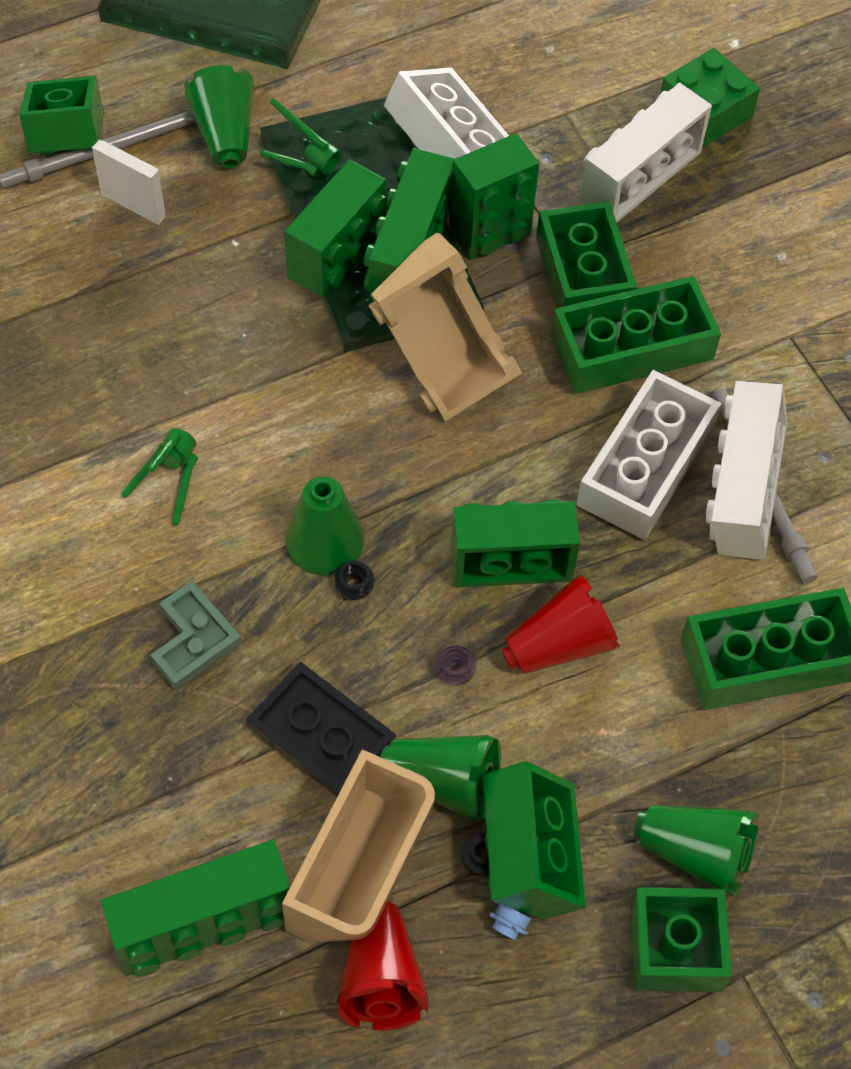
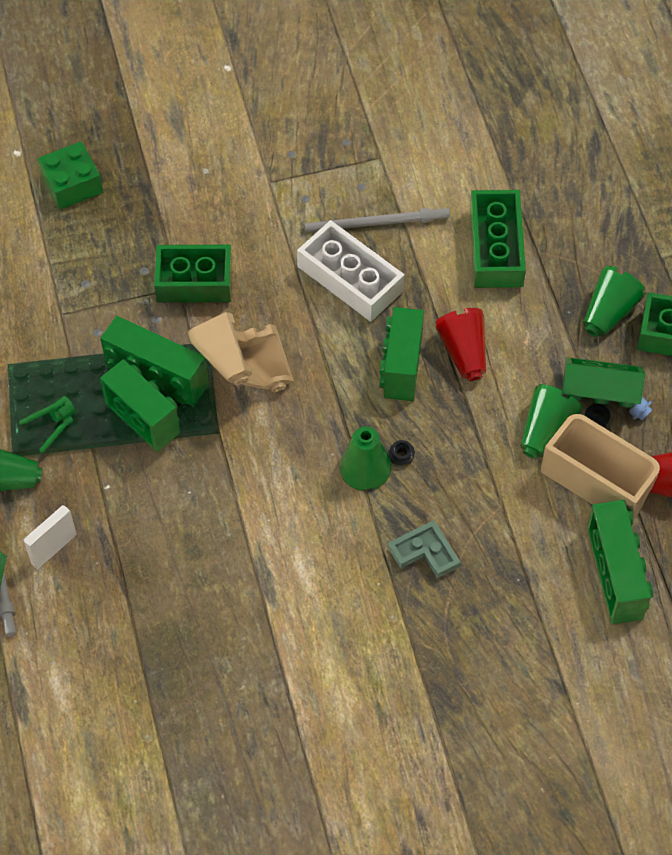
camera: 75 degrees left, 0 degrees up
(173, 453) = (283, 542): green plant -> none
(317, 727) = (504, 487): black plate -> none
(441, 113) = (62, 325): white brick -> none
(458, 655) = (475, 402): plate -> none
(493, 196) = (137, 299): green brick -> none
(634, 333) = (258, 259): green brick -> none
(646, 151) = (116, 220): white brick -> none
(748, 470) = (380, 217): white brick -> none

